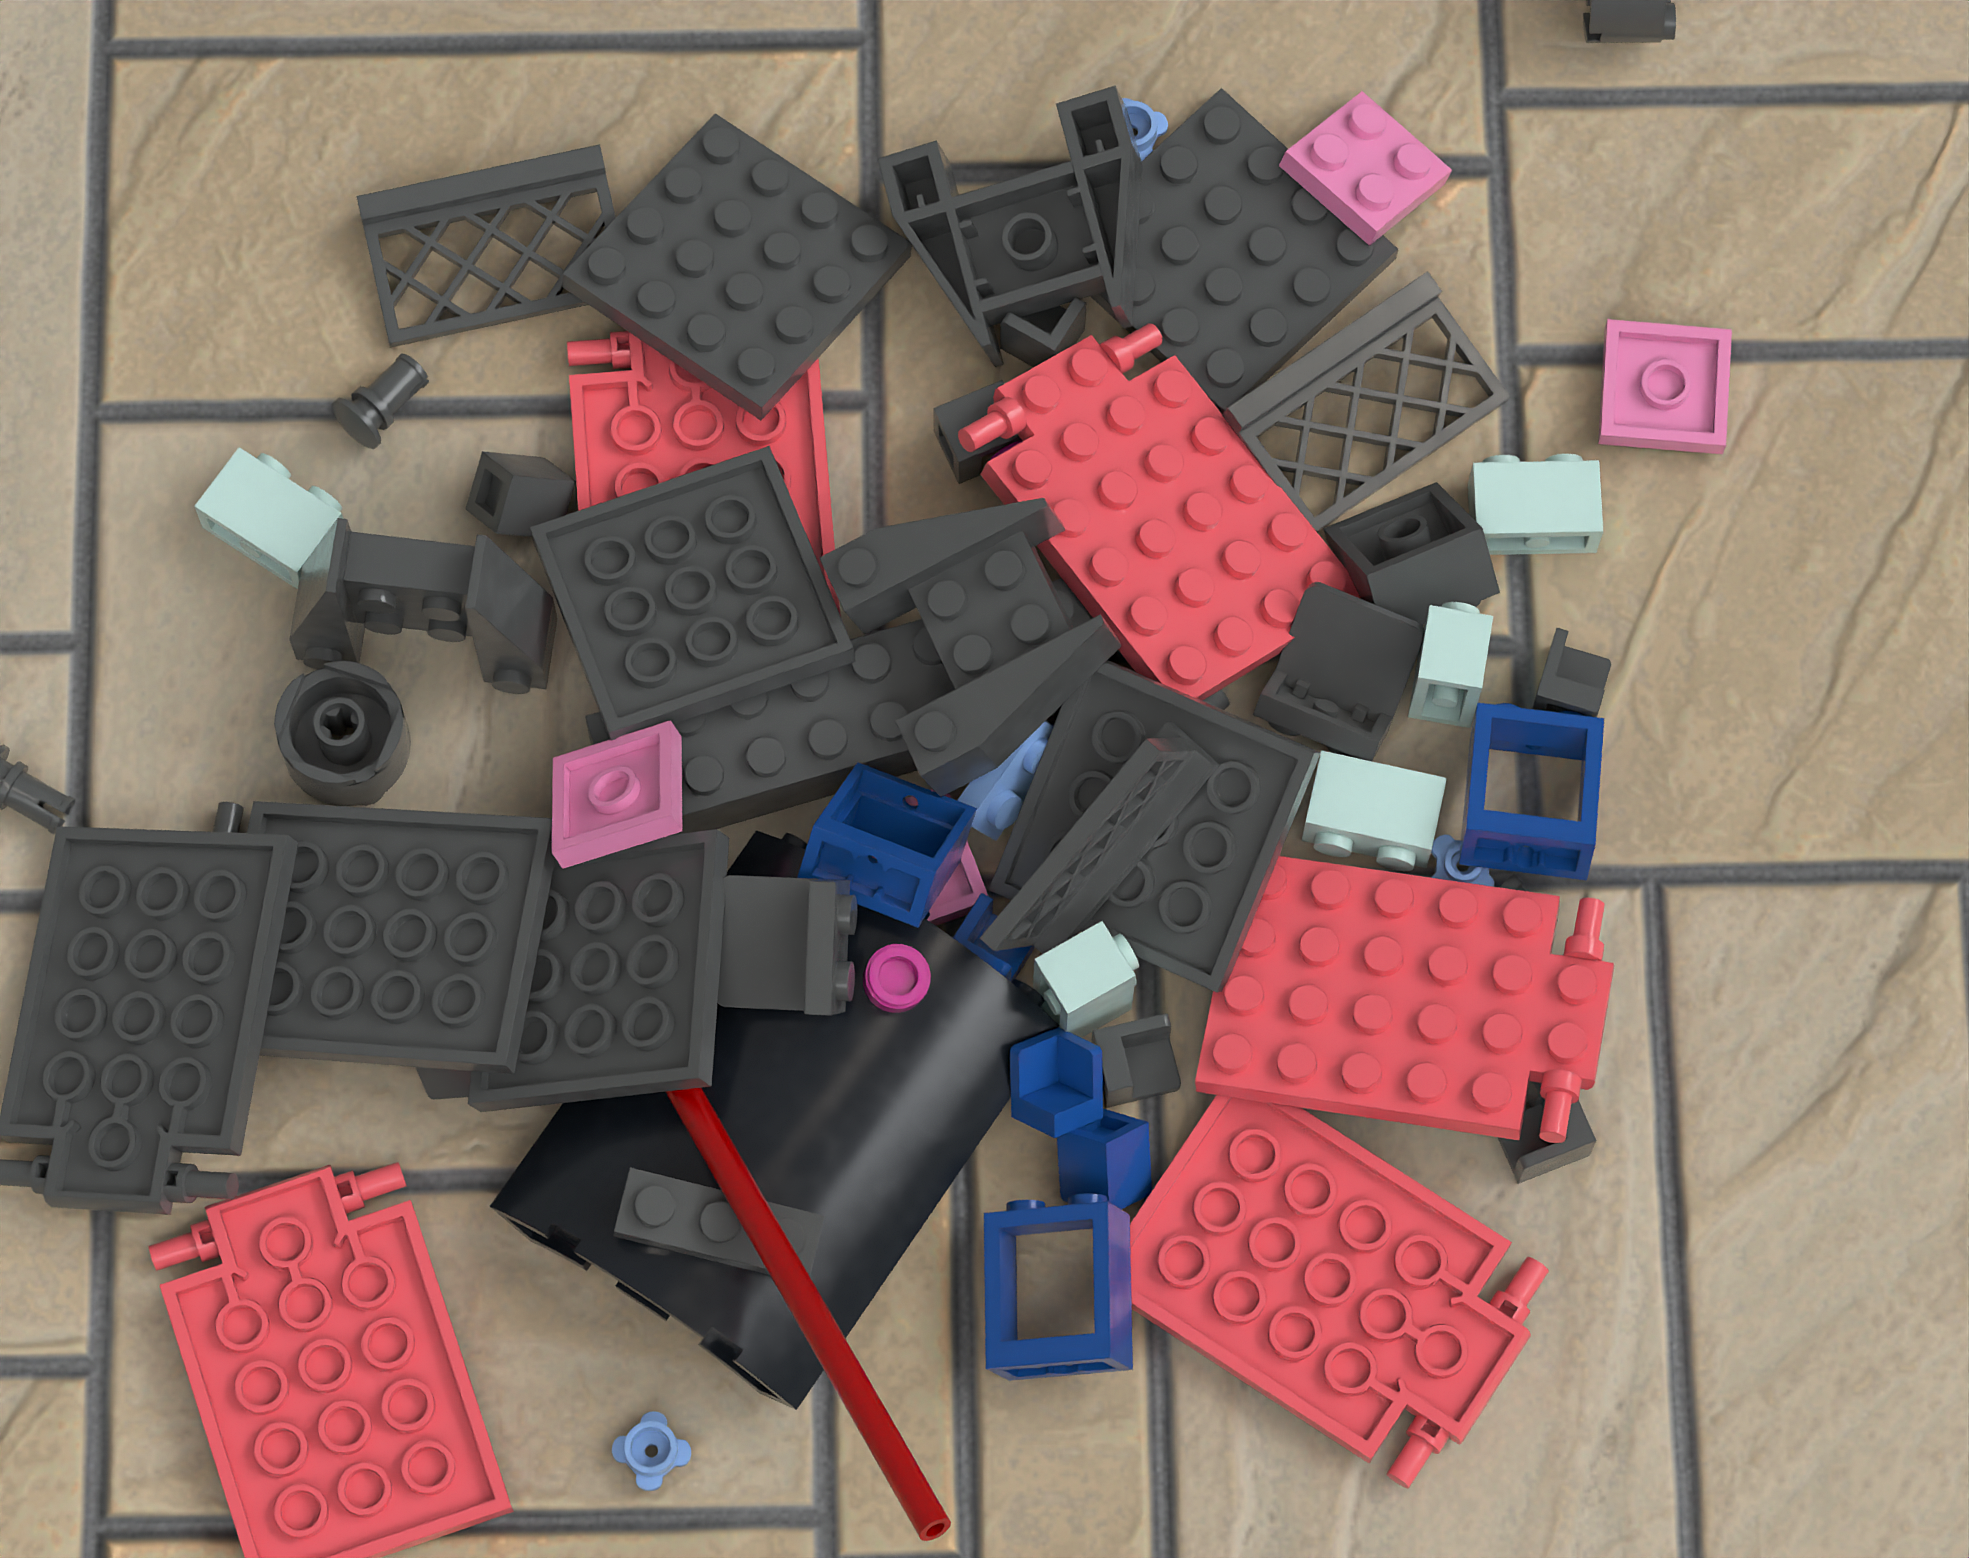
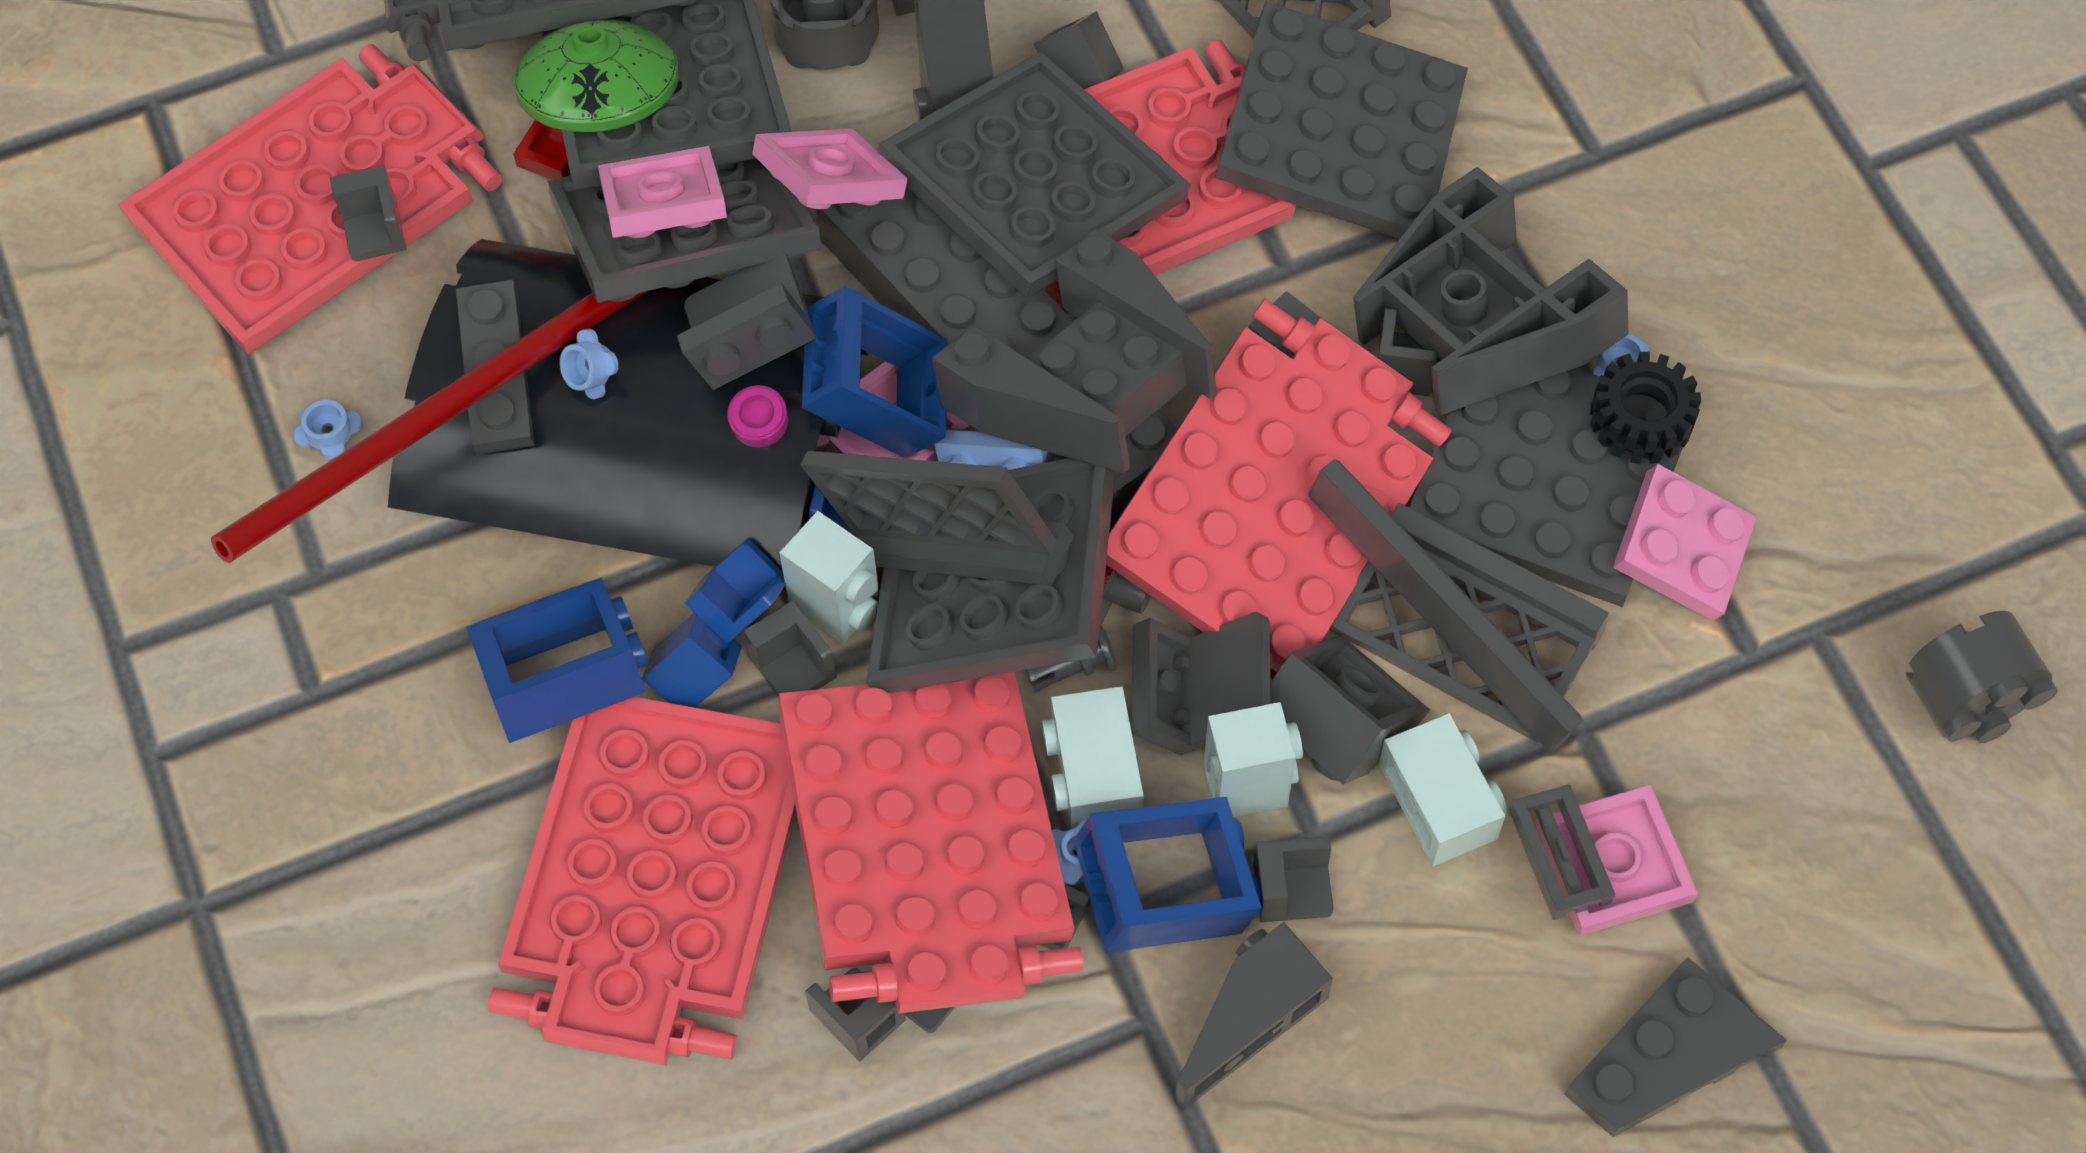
camera: 70 degrees right, 10 degrees down
(385, 1020) = (596, 76): none -> bright green dish
(387, 1098) = (543, 152): none -> red plate
(417, 1312) = (368, 213): none -> dark grey panel
(585, 975) = (662, 192): none -> bright pink plate
(768, 1125) = (588, 364): none -> light blue plate
(1224, 100) = (1653, 381): none -> black tyre
(1361, 416) = (1444, 606): none -> dark grey tile
(1649, 451) = (1578, 899): none -> dark grey tile
(1686, 771) = (1262, 997): none -> dark grey slope
(1862, 426) = (1670, 1048): none -> dark grey wing

